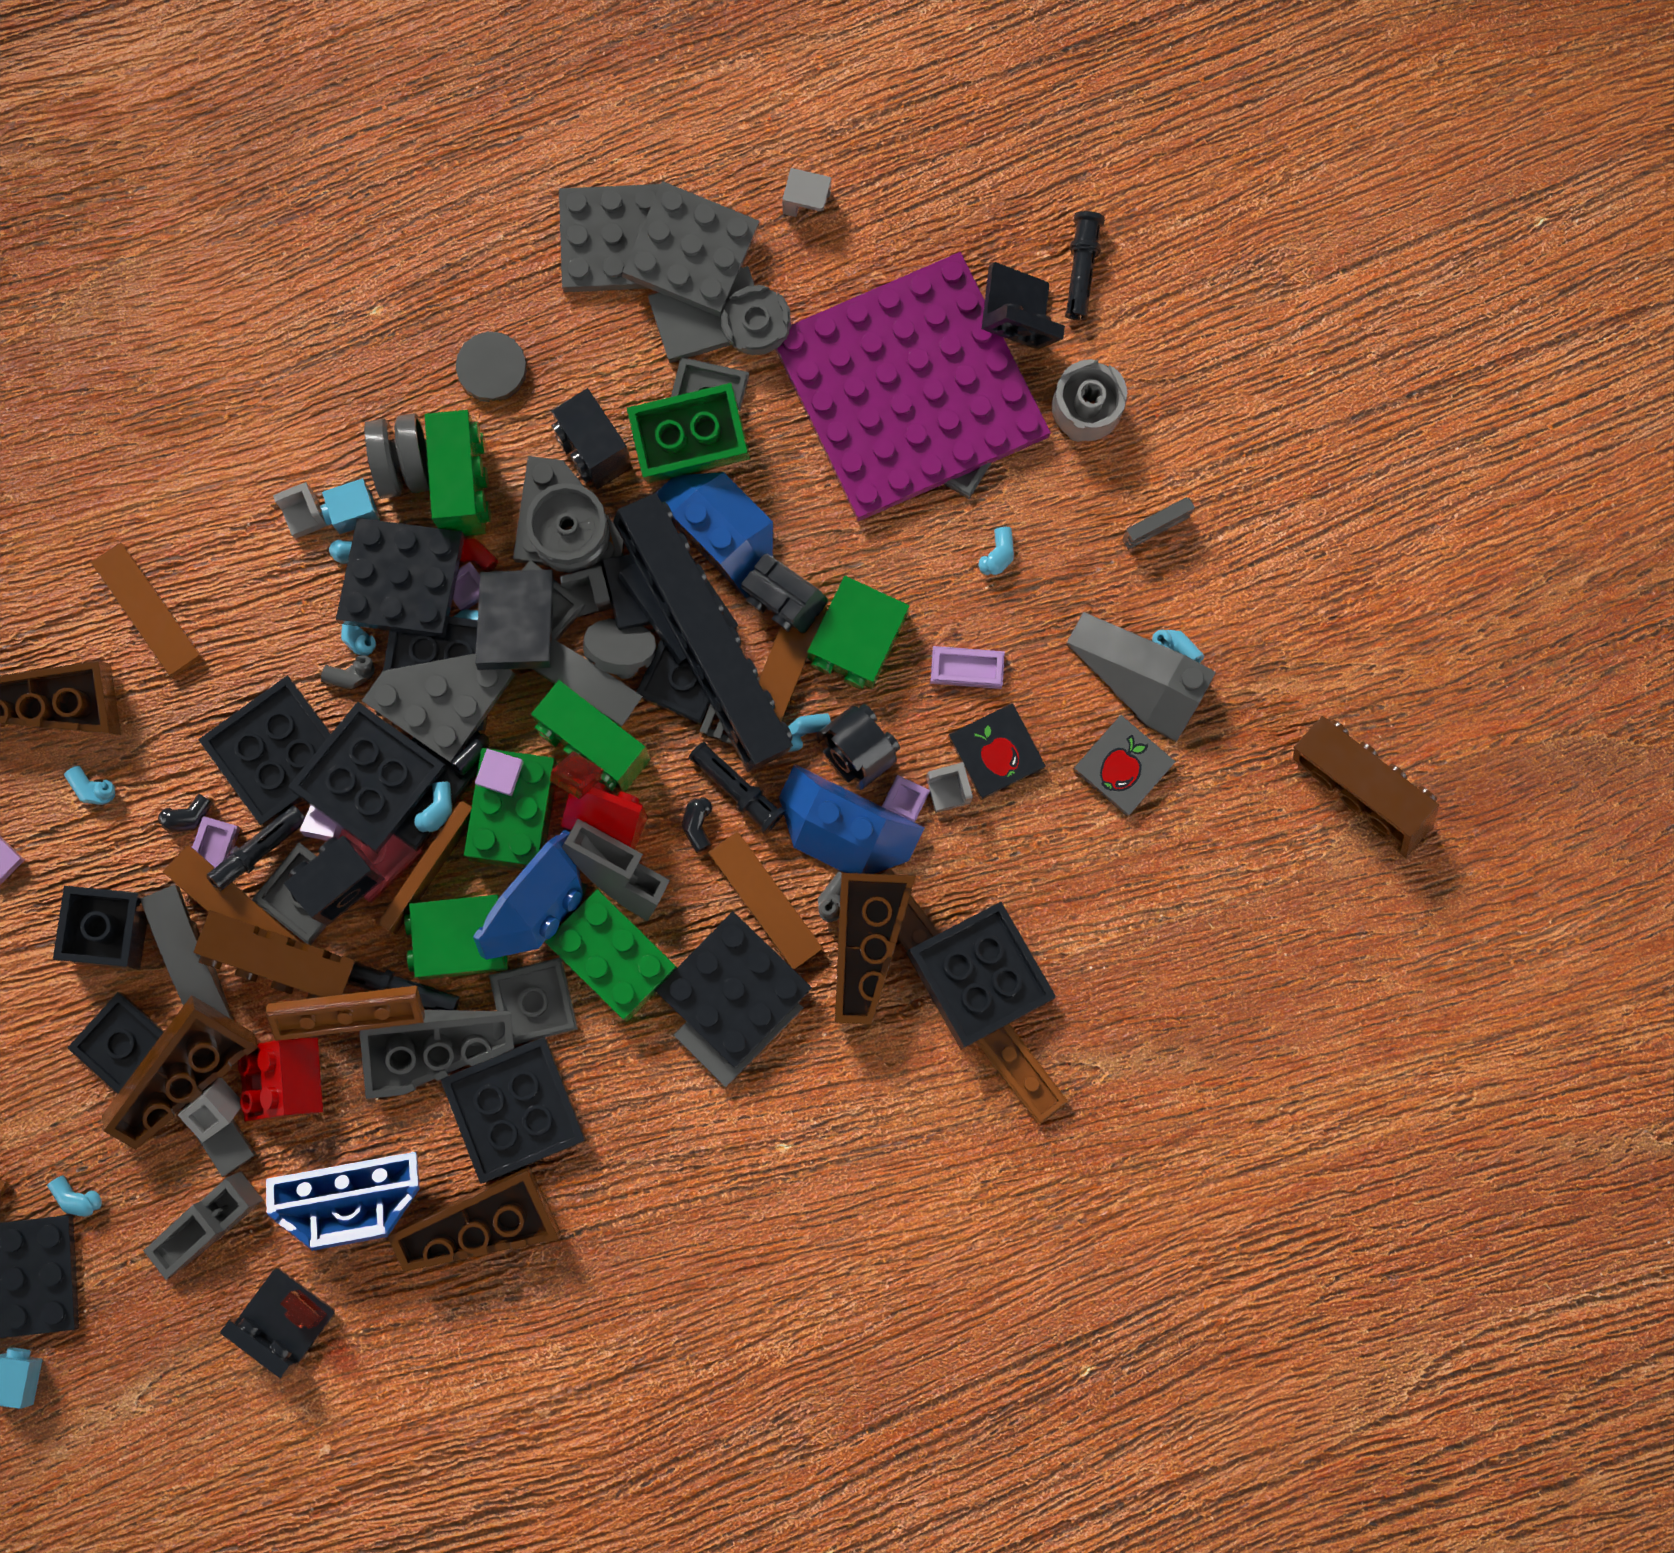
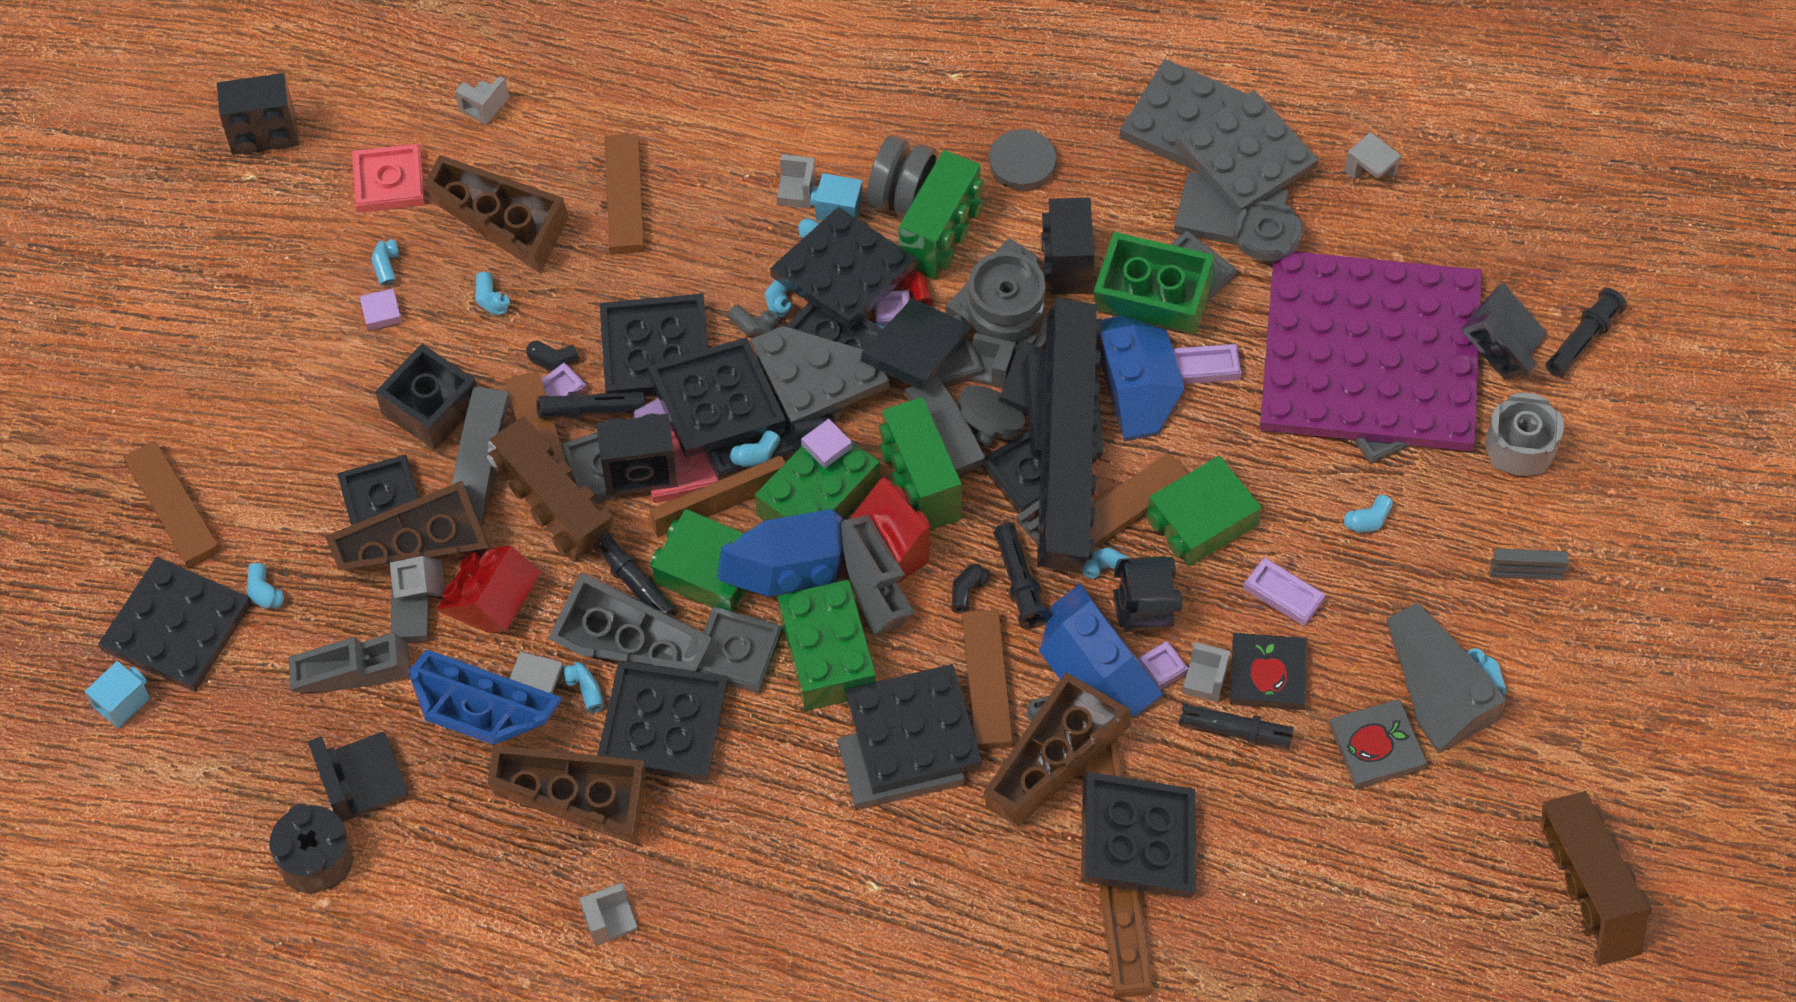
camera: 35 degrees right, 20 degrees down
(274, 1437) = (311, 848): none -> black brick
(302, 1310) = (383, 769): clear red plate -> none
(345, 1013) = (578, 551): dark orange tile -> none
(377, 1139) = (538, 672): none -> light grey panel
(427, 1114) = (589, 686): none -> medium azure arm
(576, 775) = (889, 472): clear red plate -> none
(580, 1316) = (608, 914): none -> light grey panel
(776, 481) = (1208, 363): none -> lavender tile
(784, 594) = (1157, 444): black brick -> none
(1002, 820) = (1236, 726): none -> black pin

